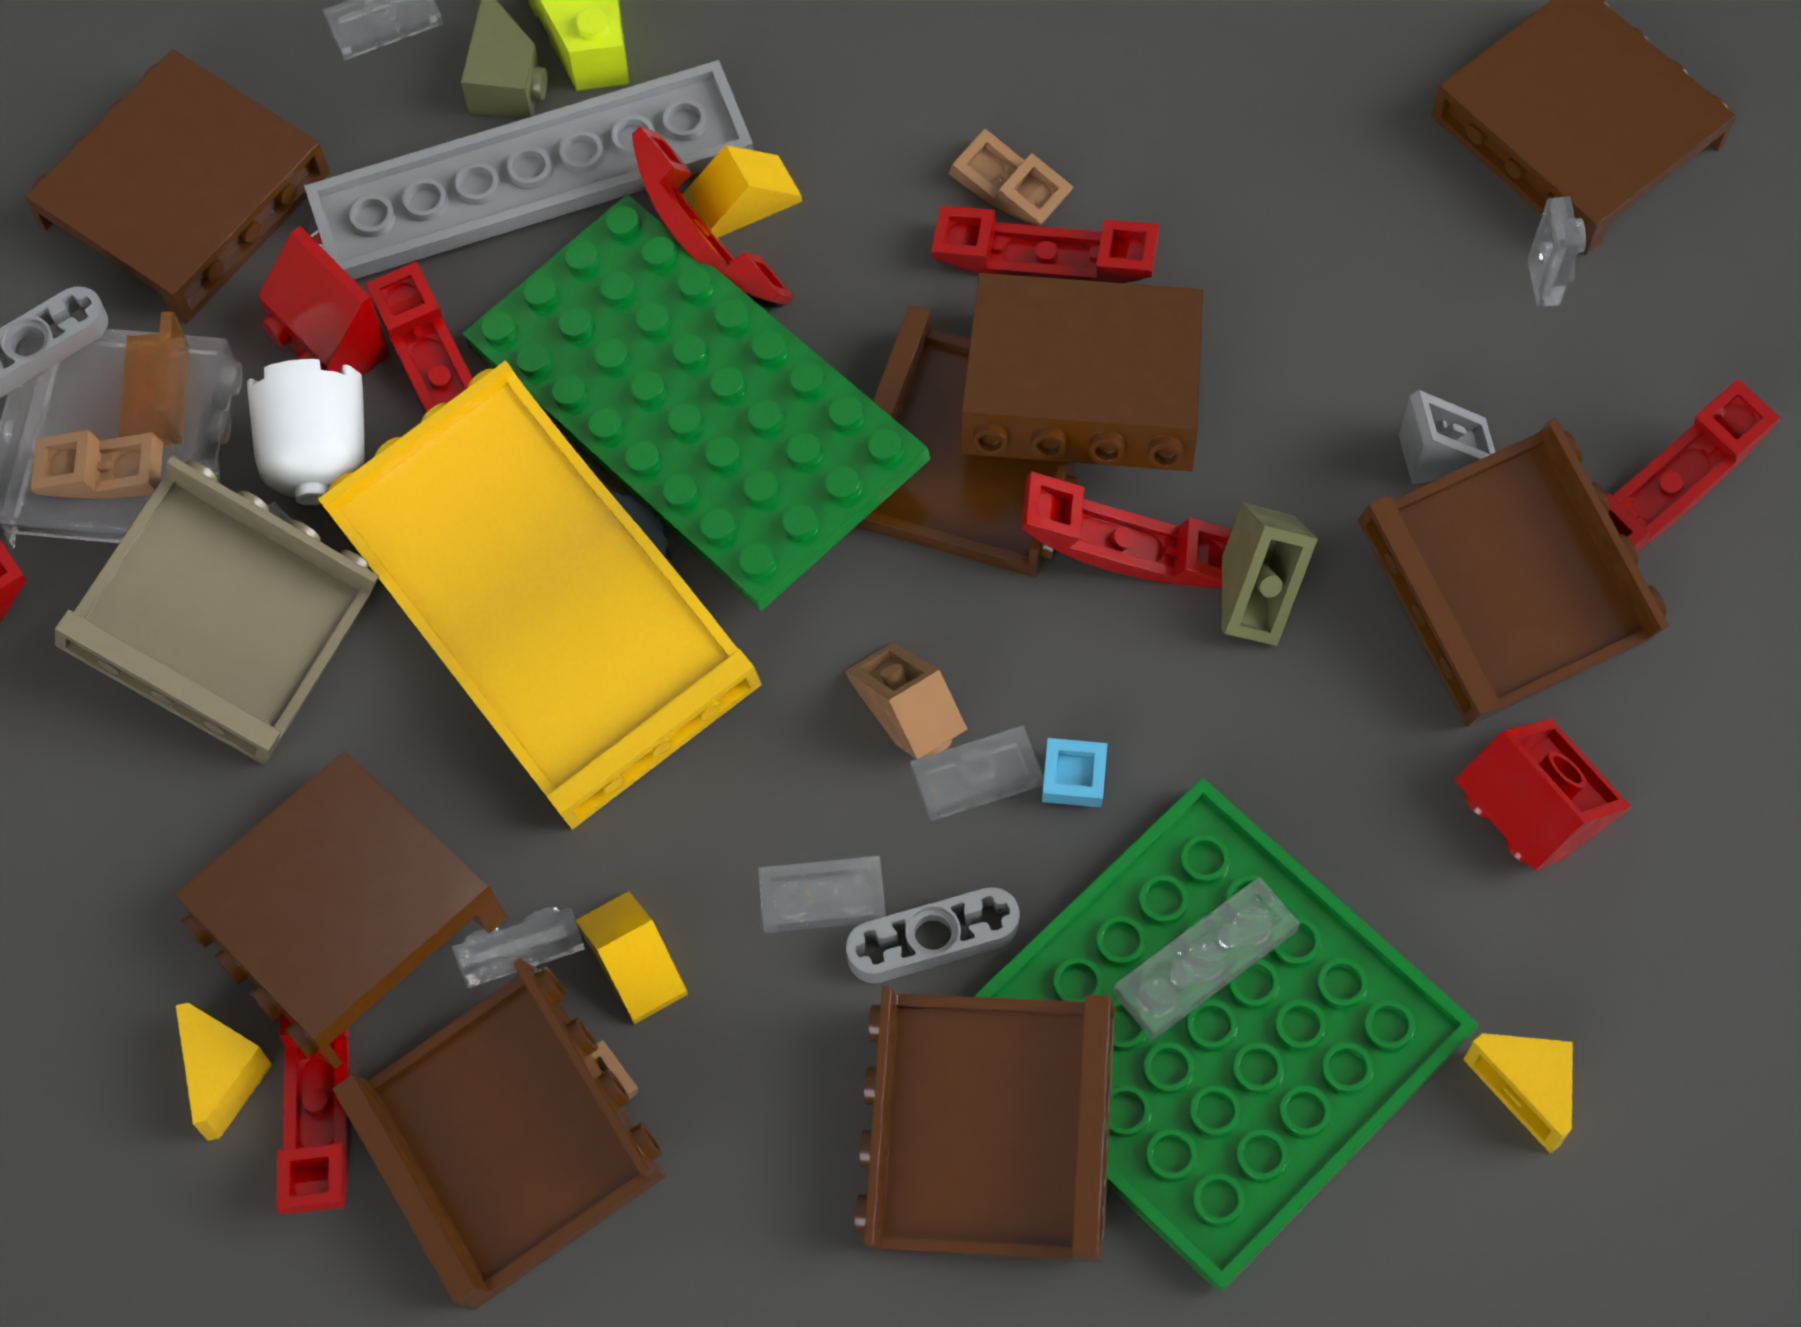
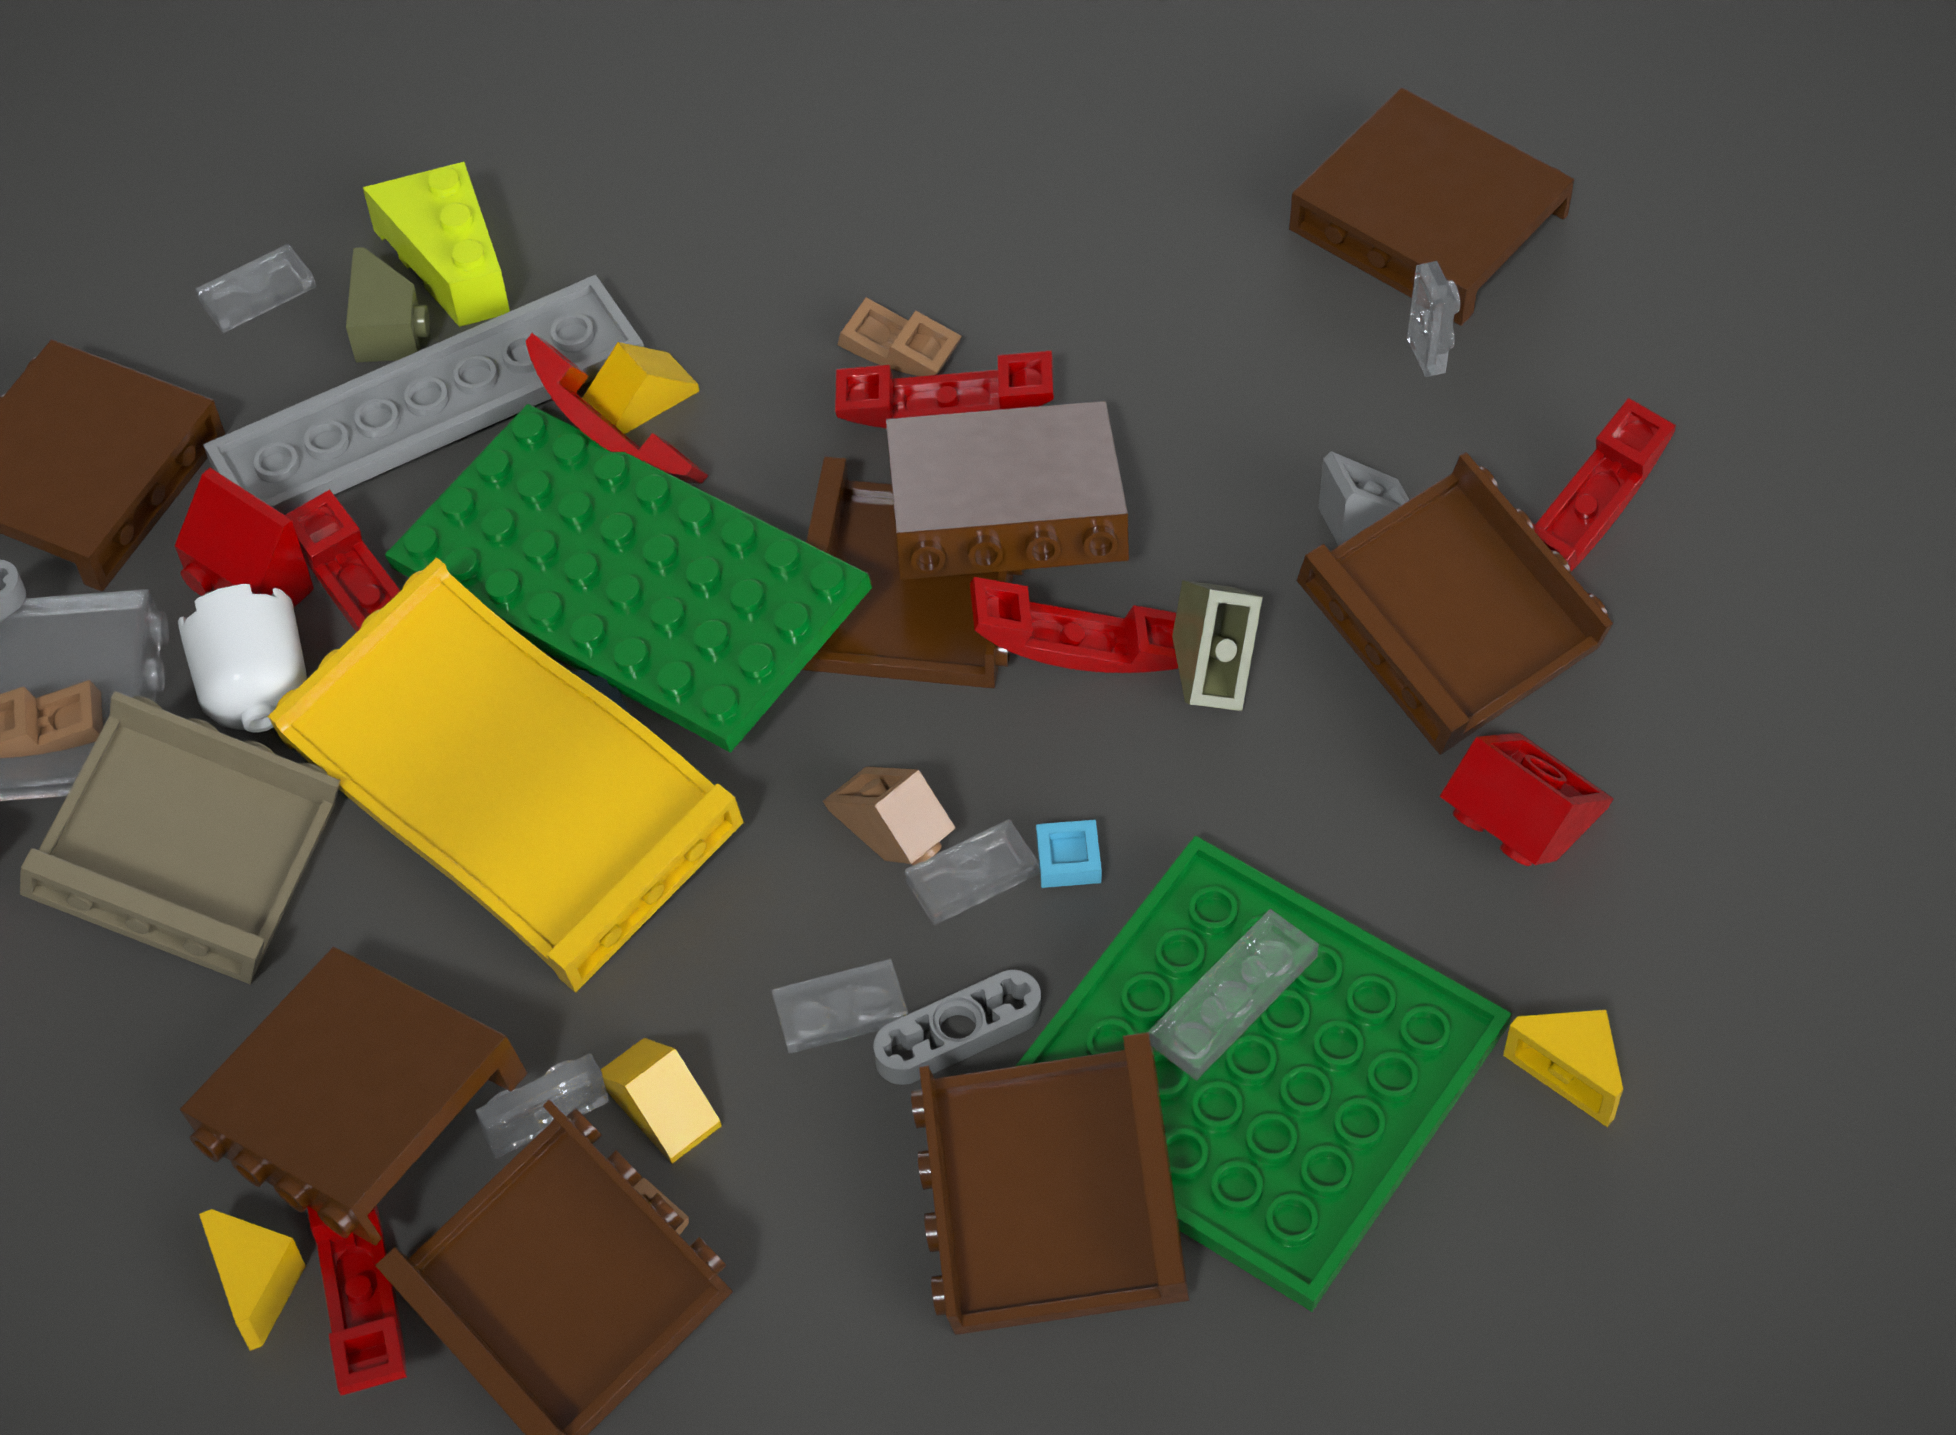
camera: 10 degrees left, 10 degrees down
(155, 382) = (84, 635): clear orange panel -> none

